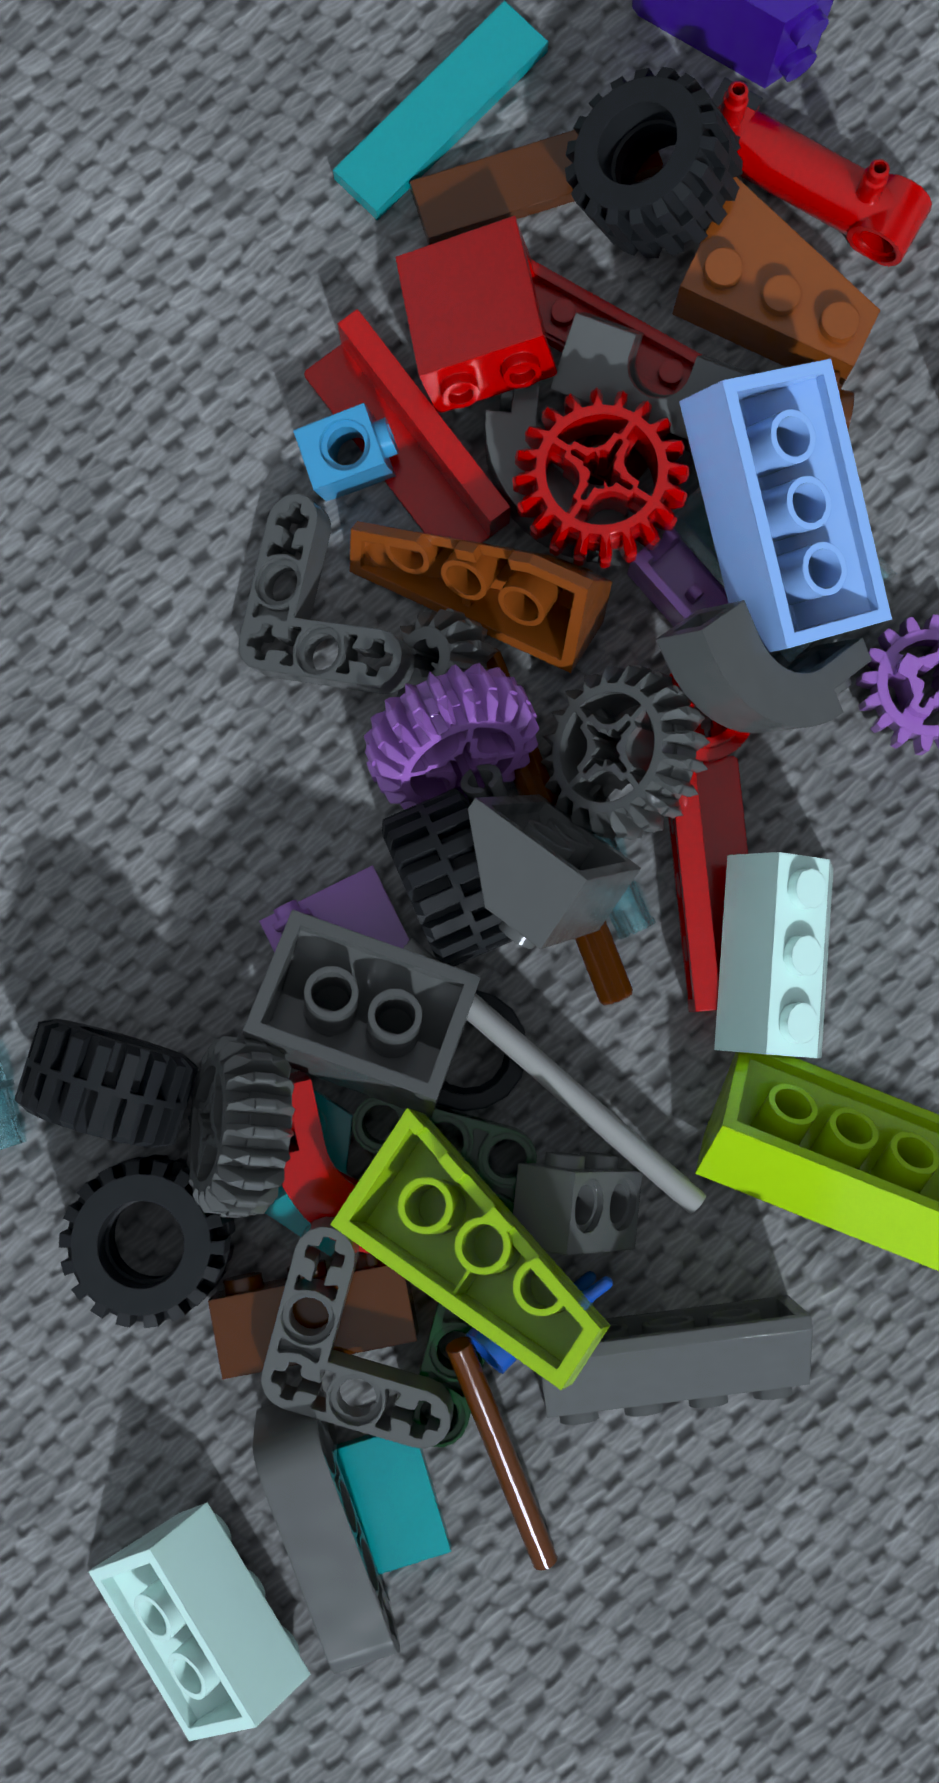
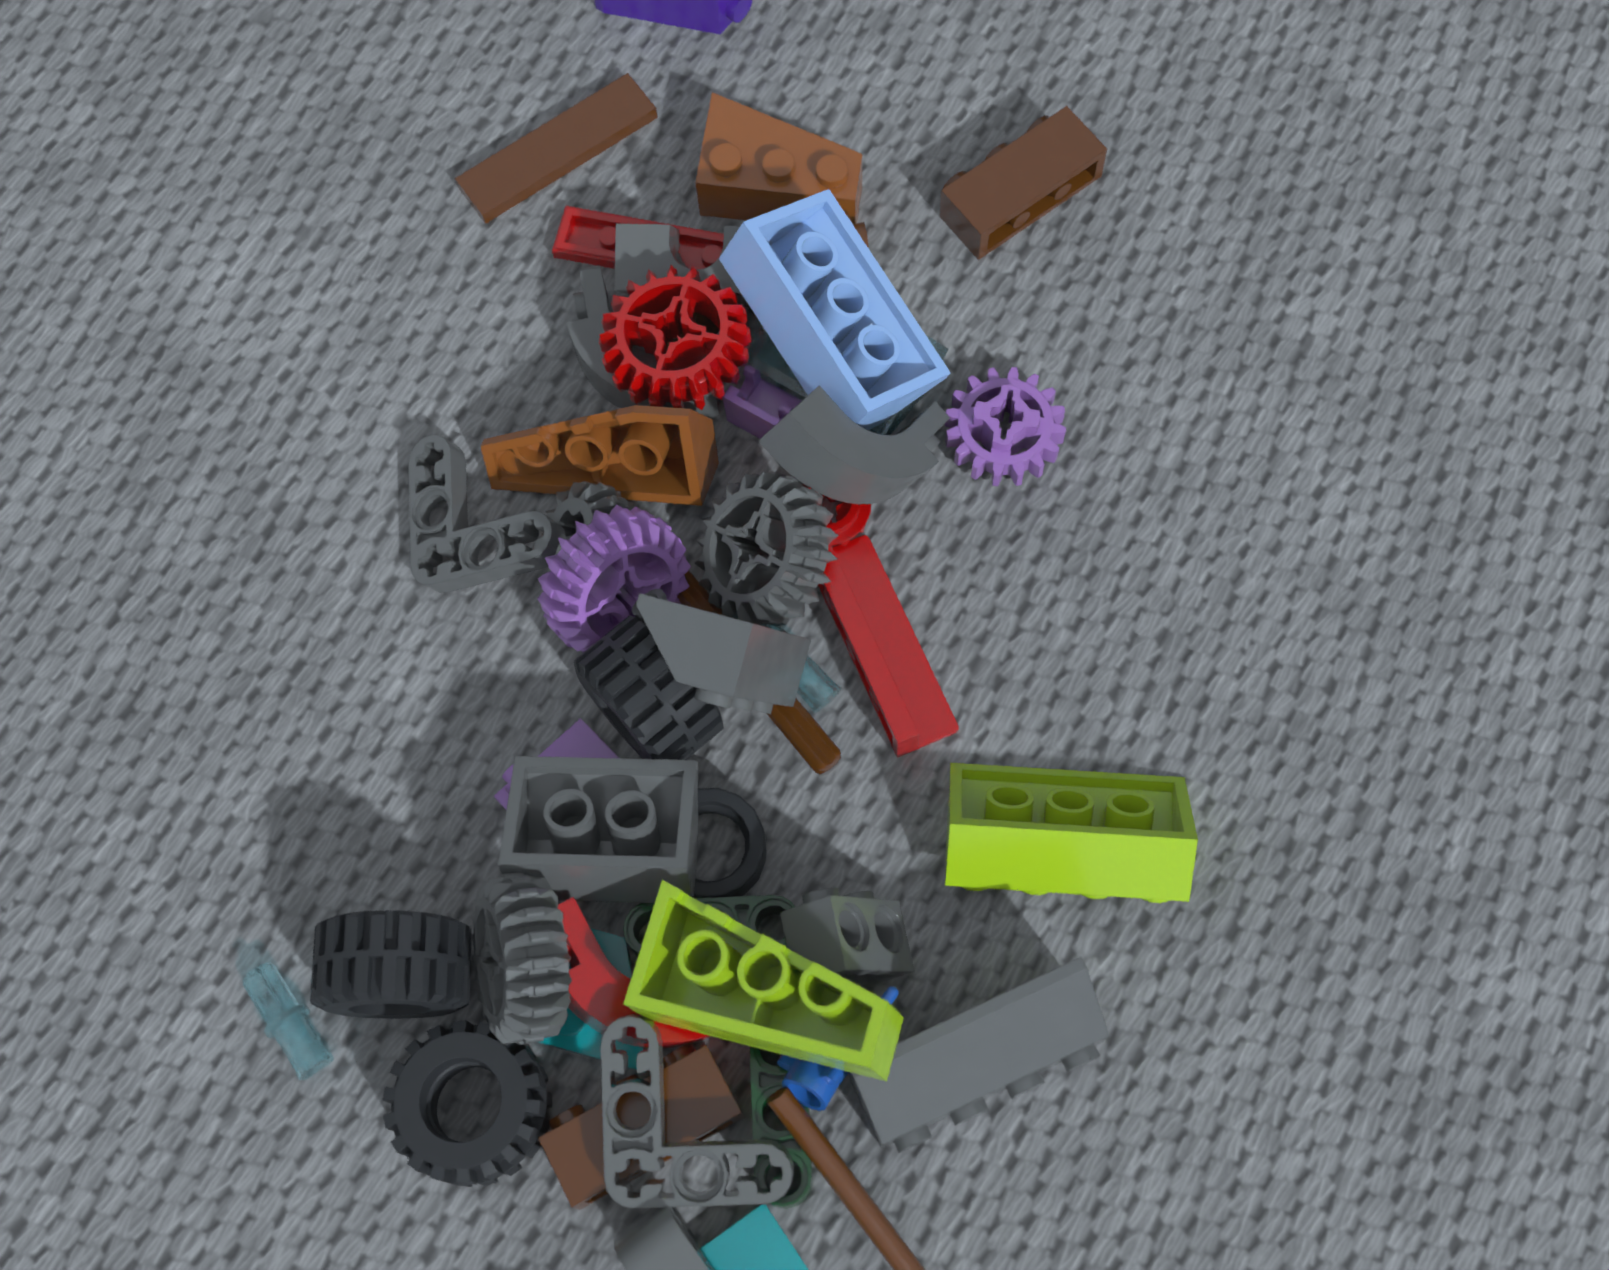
camera: 15 degrees left, 15 degrees down
(320, 448) = (441, 382): dark azure brick -> none
(433, 469) = (504, 363): red panel -> none
(440, 110) = (464, 123): teal tile -> none
(475, 316) = (536, 254): red panel -> none
(579, 1100) = (826, 854): light grey bar -> none
(630, 128) = (618, 81): black tyre -> none
(774, 954) = (950, 674): light aqua slope -> none
(868, 205) = (834, 90): red piece -> none

